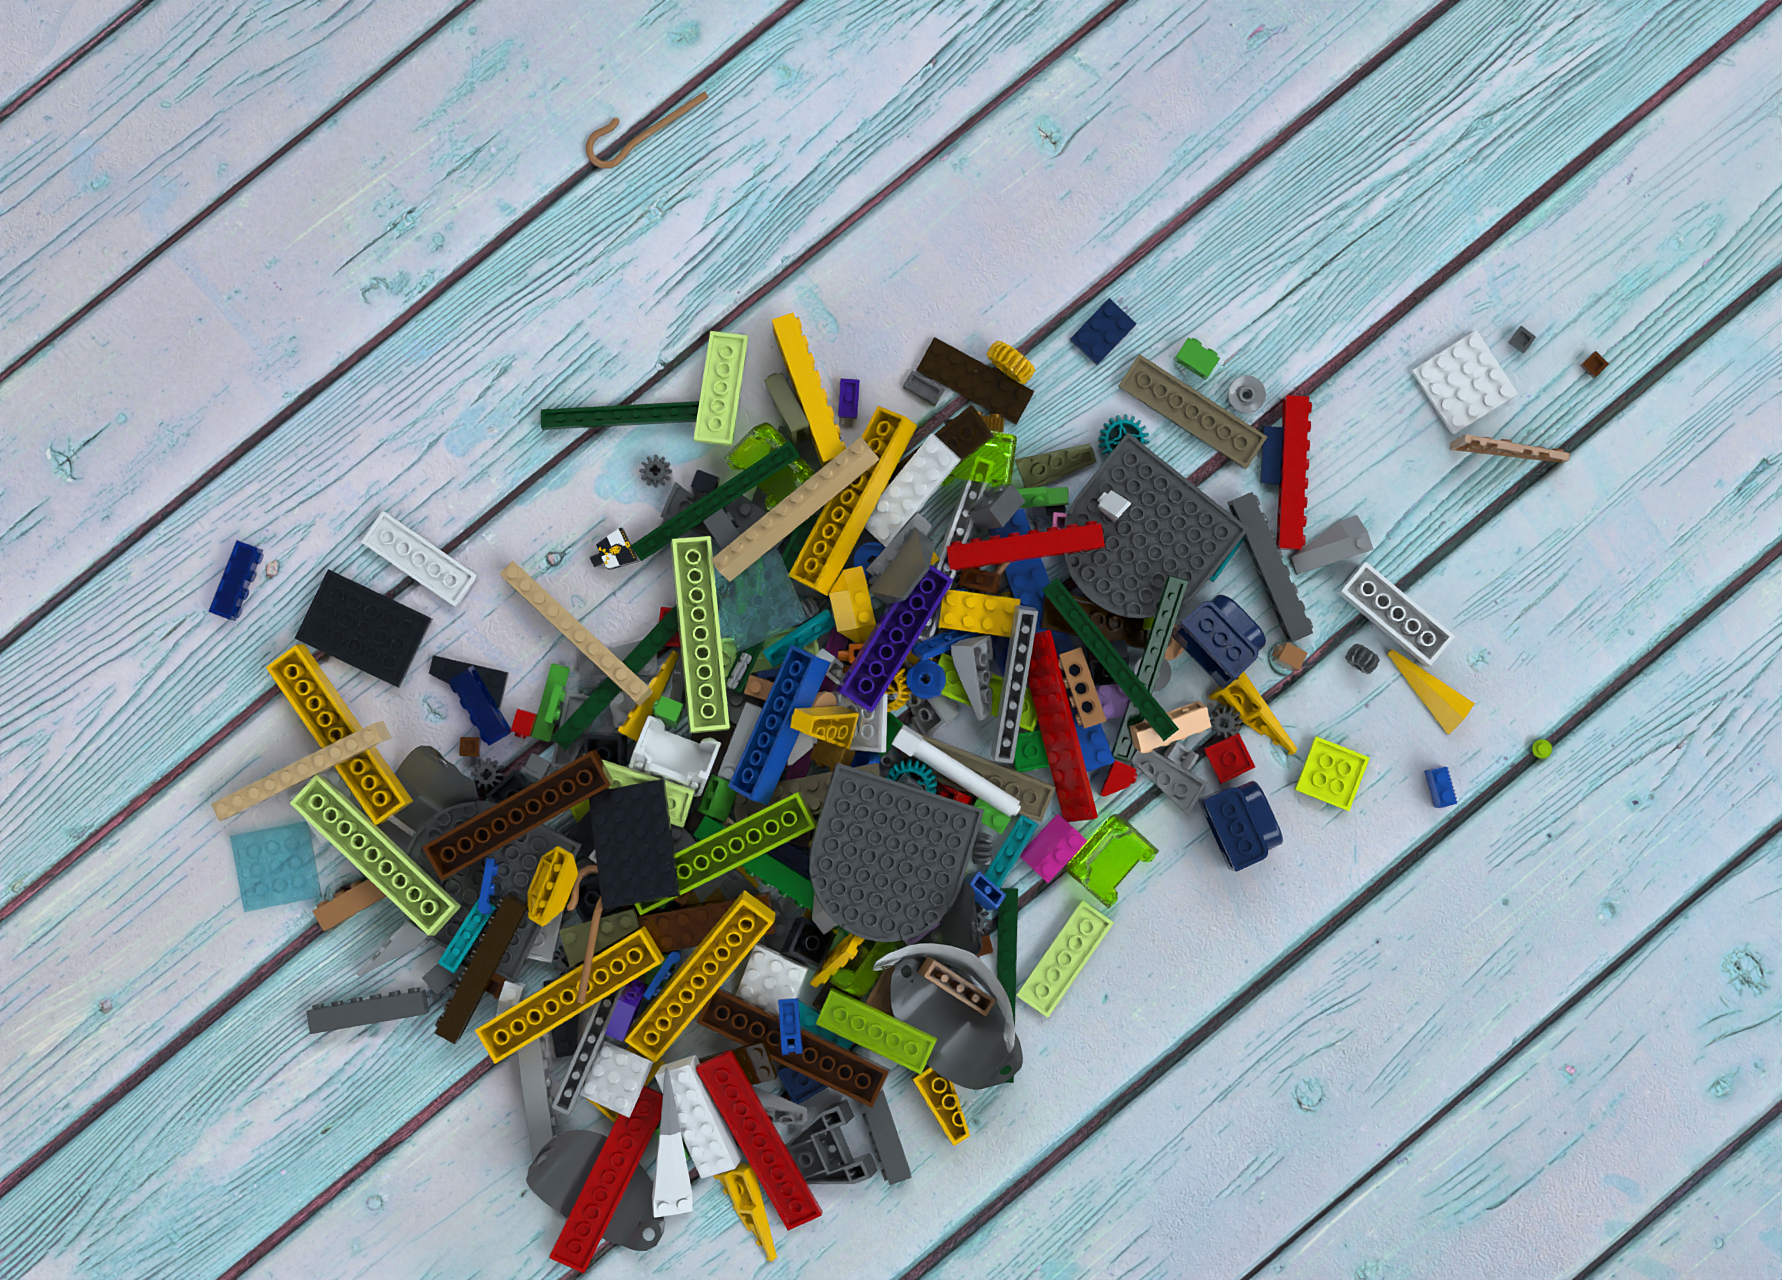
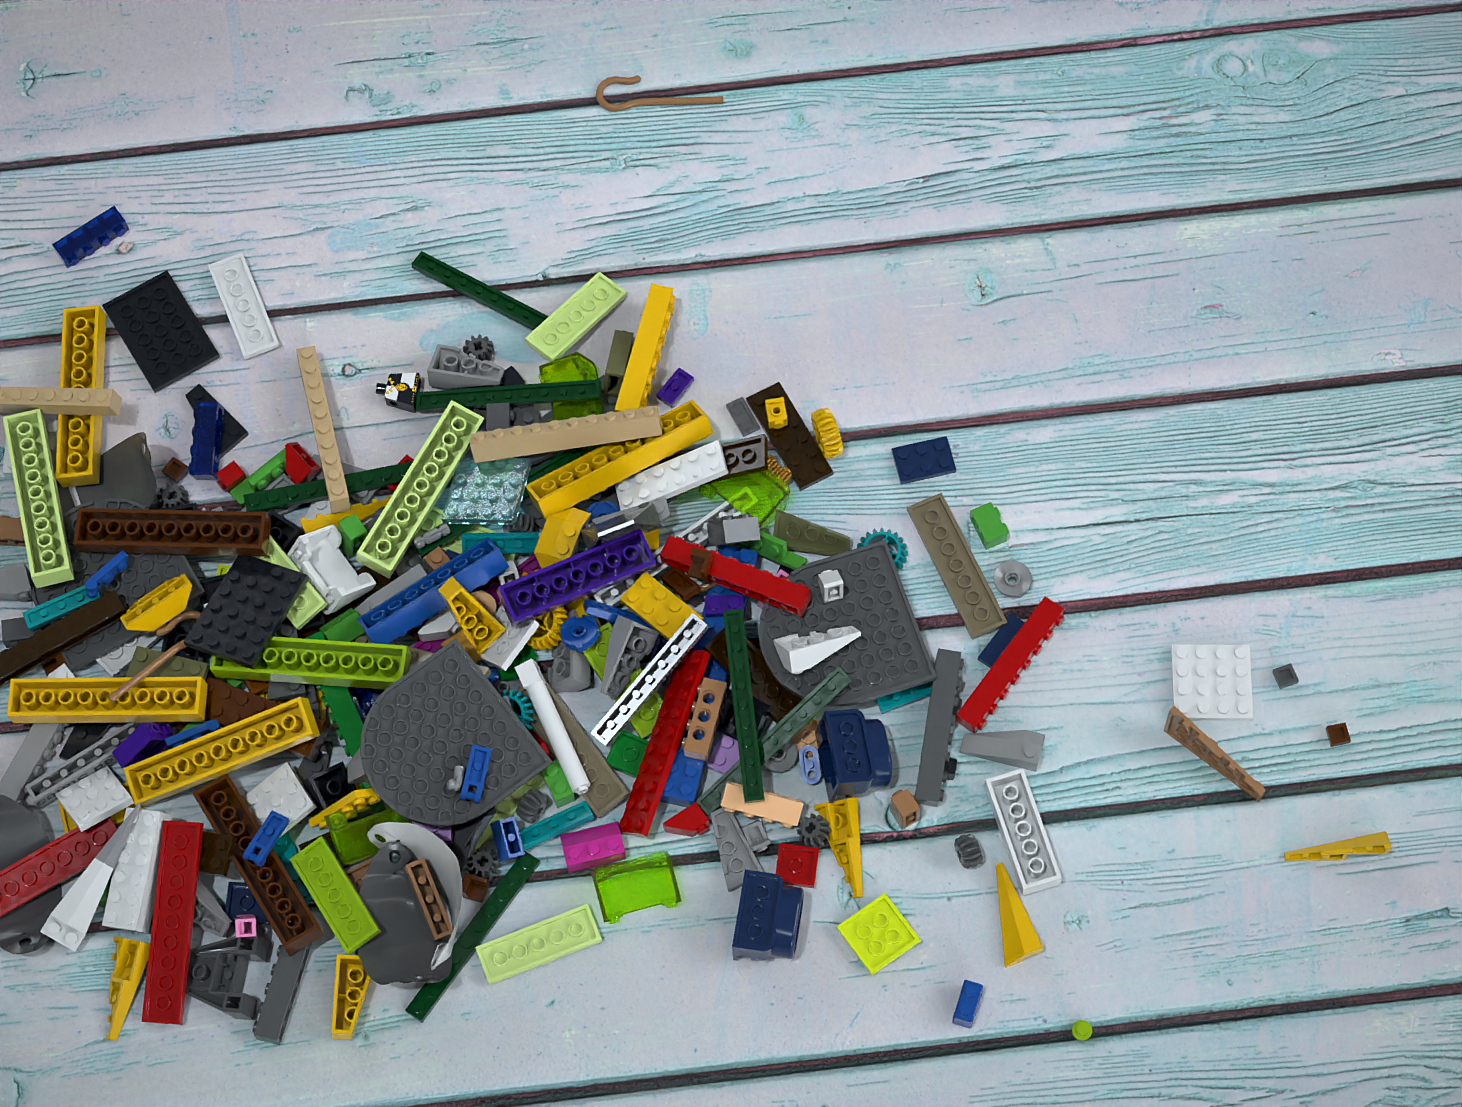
camera: 40 degrees right, 20 degrees down
(576, 675) = (299, 464): none -> red slope
(654, 501) = (457, 369): none -> light grey wedge
(822, 1104) = (245, 925): none -> bright pink leg
(921, 879) = (455, 784): none -> light grey arm
(933, 866) = (475, 773): none -> blue plate
(947, 370) = (776, 406): none -> yellow brick
(993, 560) = (700, 564): none -> reddish brown panel
(1029, 576) = (718, 603): none -> dark purple plate
(1130, 575) = (806, 651): none -> white wedge
(1185, 665) = (808, 765): none -> plate
(1302, 593) = (951, 768): none -> black tile
(1674, 449) = (1369, 844): none -> yellow wedge

